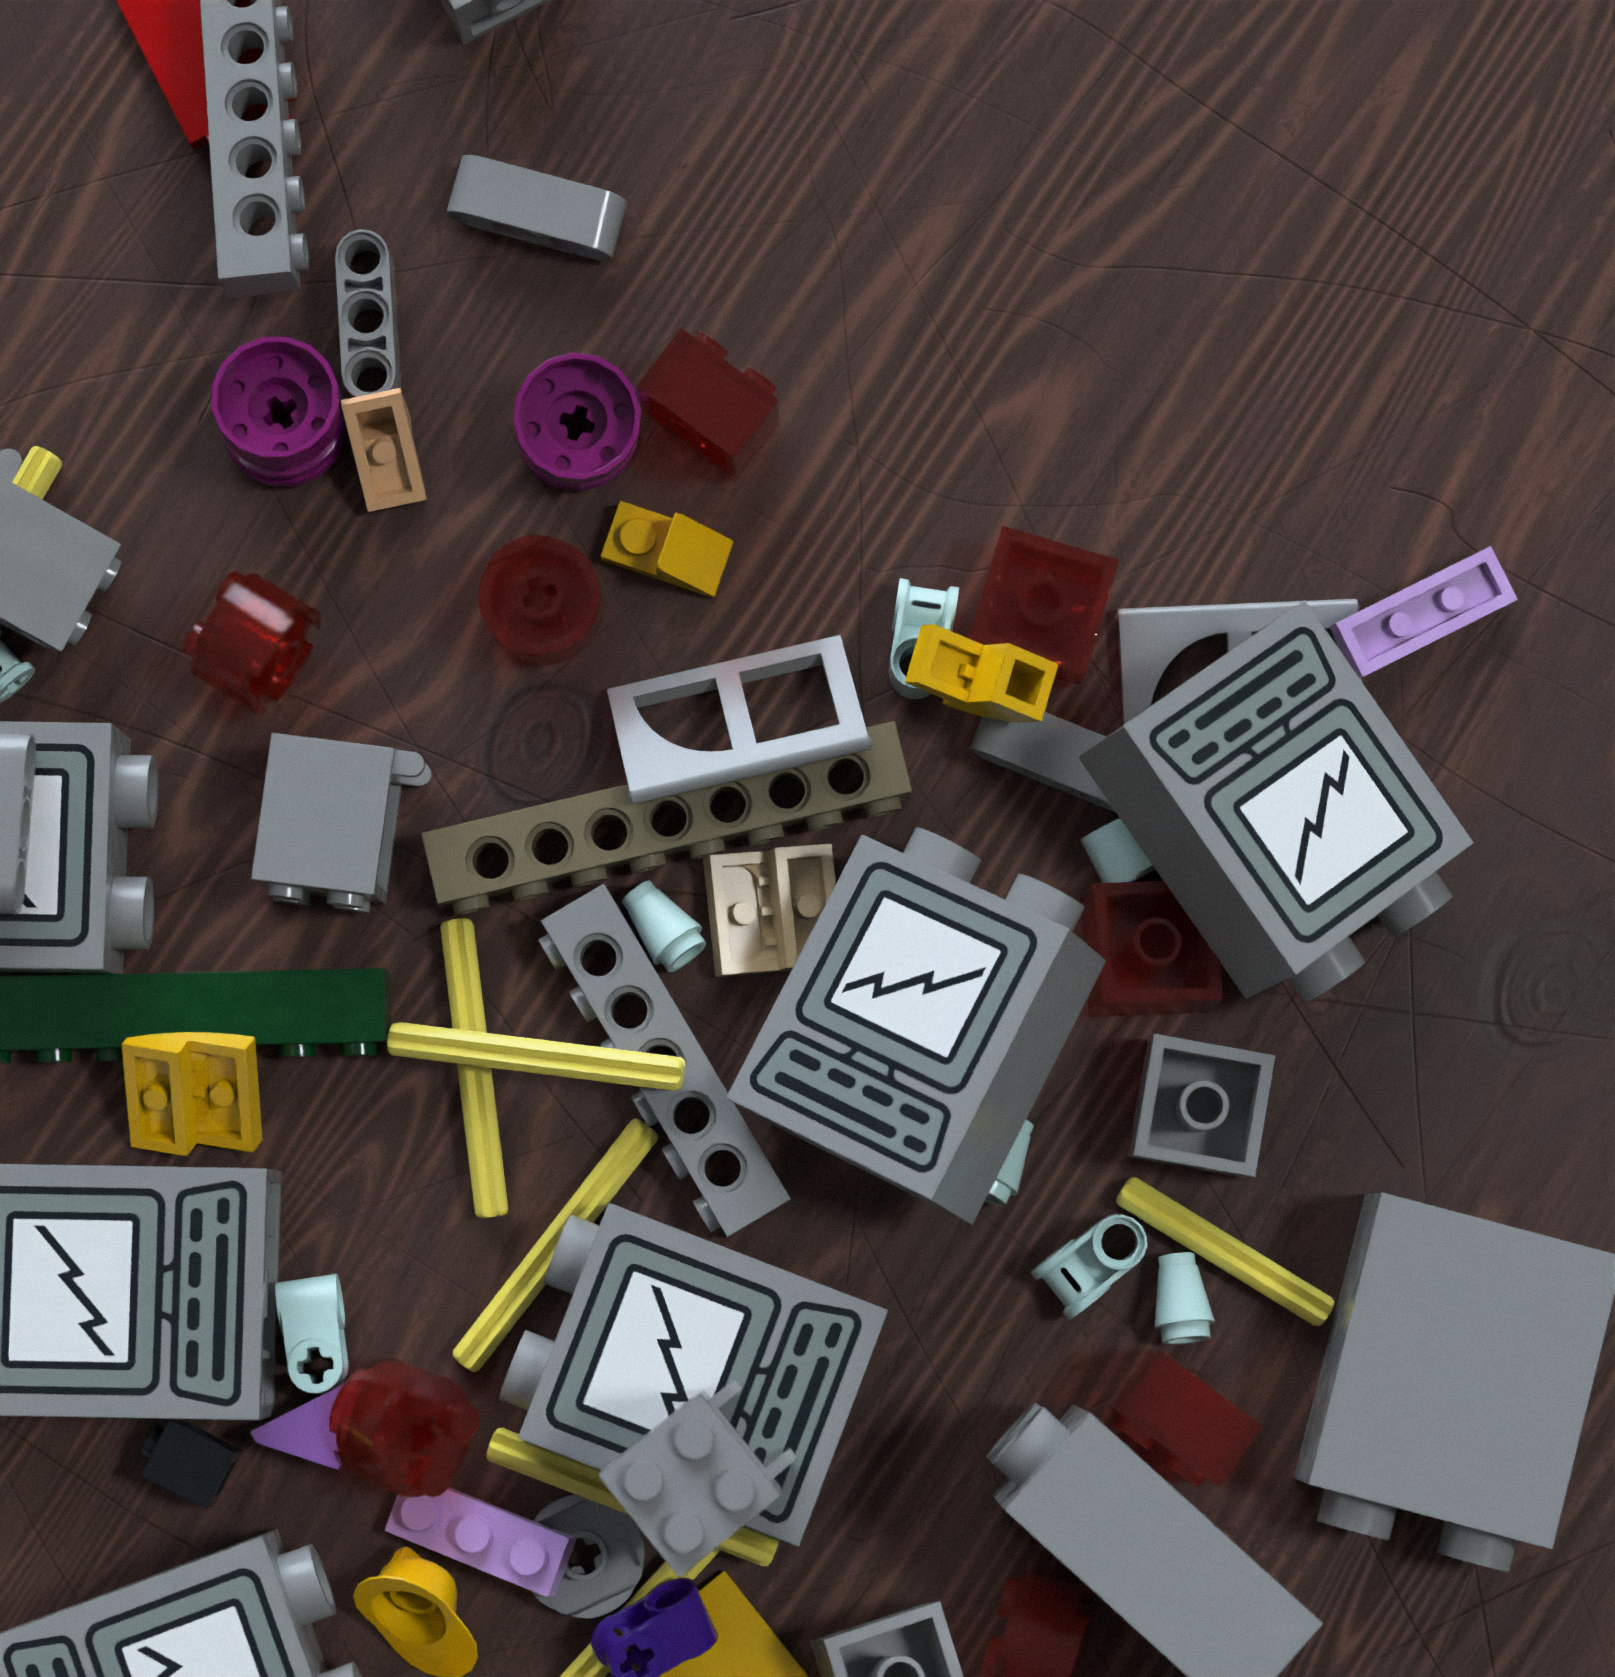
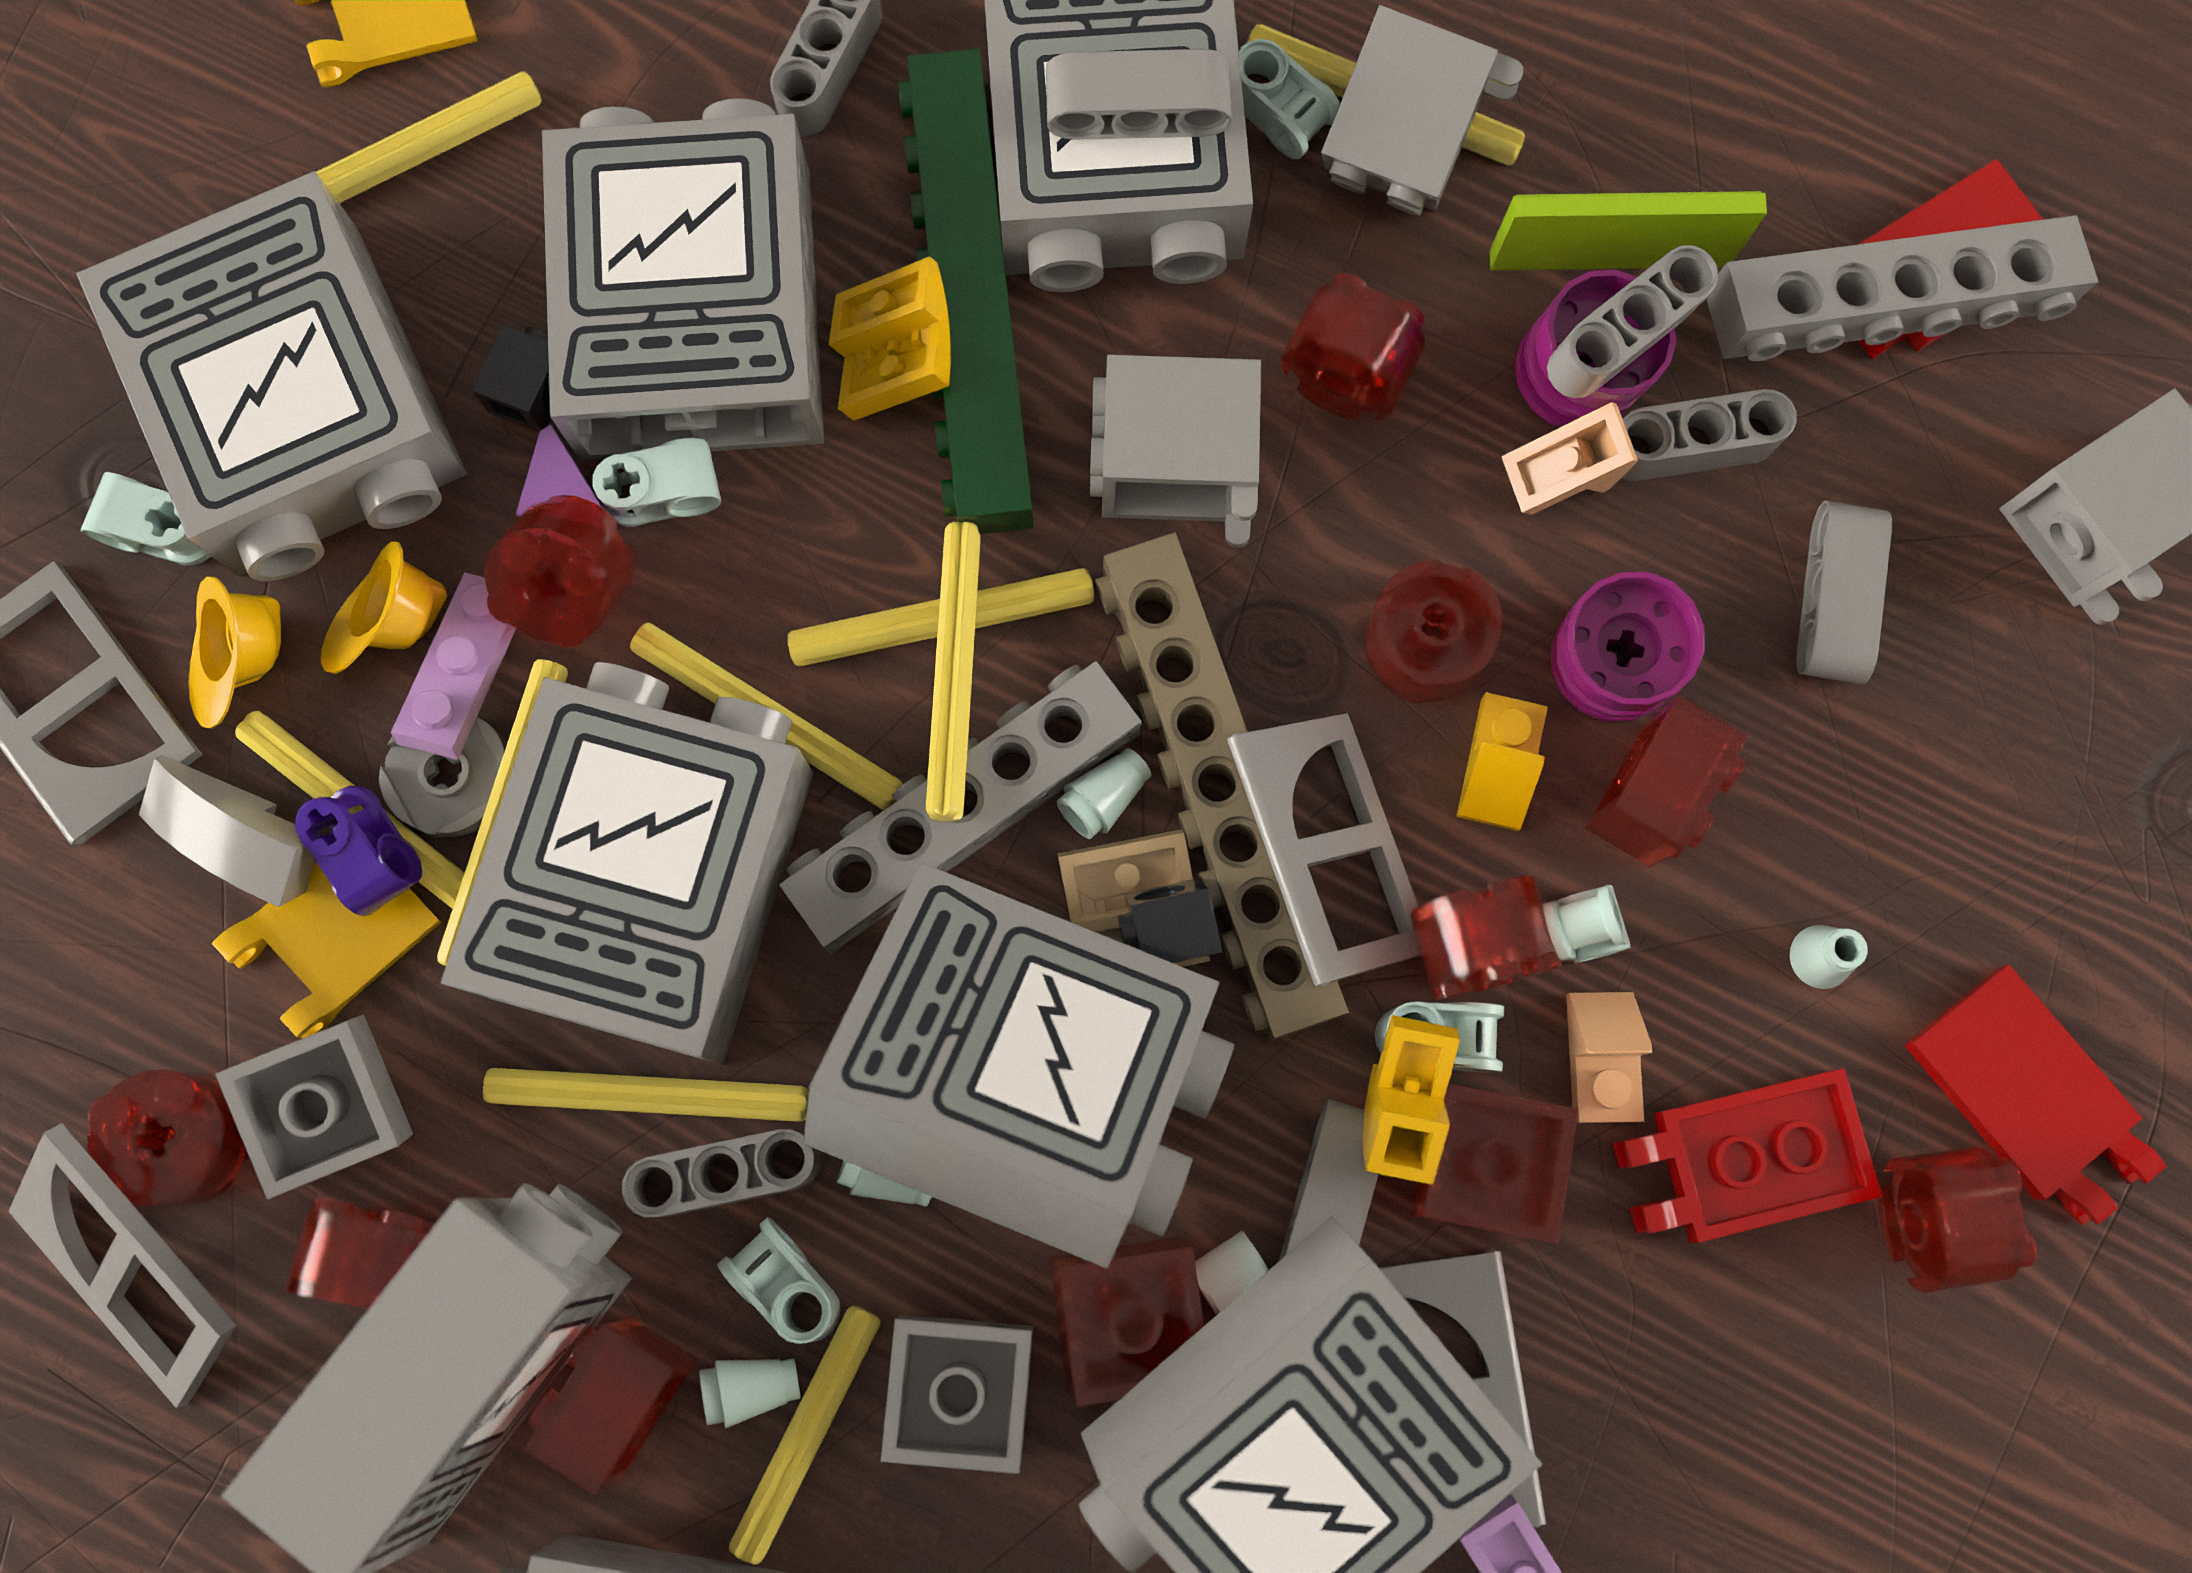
camera: 85 degrees right, 5 degrees down
(159, 364) = (1622, 228): none -> lime tile
(266, 352) = (1648, 300): none -> light grey beam
(693, 1480) = (485, 852): light grey container -> none
(797, 874) = (1171, 921): none -> black brick
(832, 494) = (1586, 925): none -> light aqua piece
(839, 588) = (1484, 938): none -> clear red brick
(876, 291) = (1826, 955): none -> light aqua cone
(907, 1380) = (645, 1094): none -> light yellow axle
(952, 490) = (1605, 1056): none -> light nougat slope
(1003, 1337) = (691, 1168): none -> light grey beam
(1018, 112) = (2034, 1094): none -> red tile
(1055, 369) = (1755, 1158): none -> red tile
(1126, 205) = (1955, 1218): none -> clear red brick

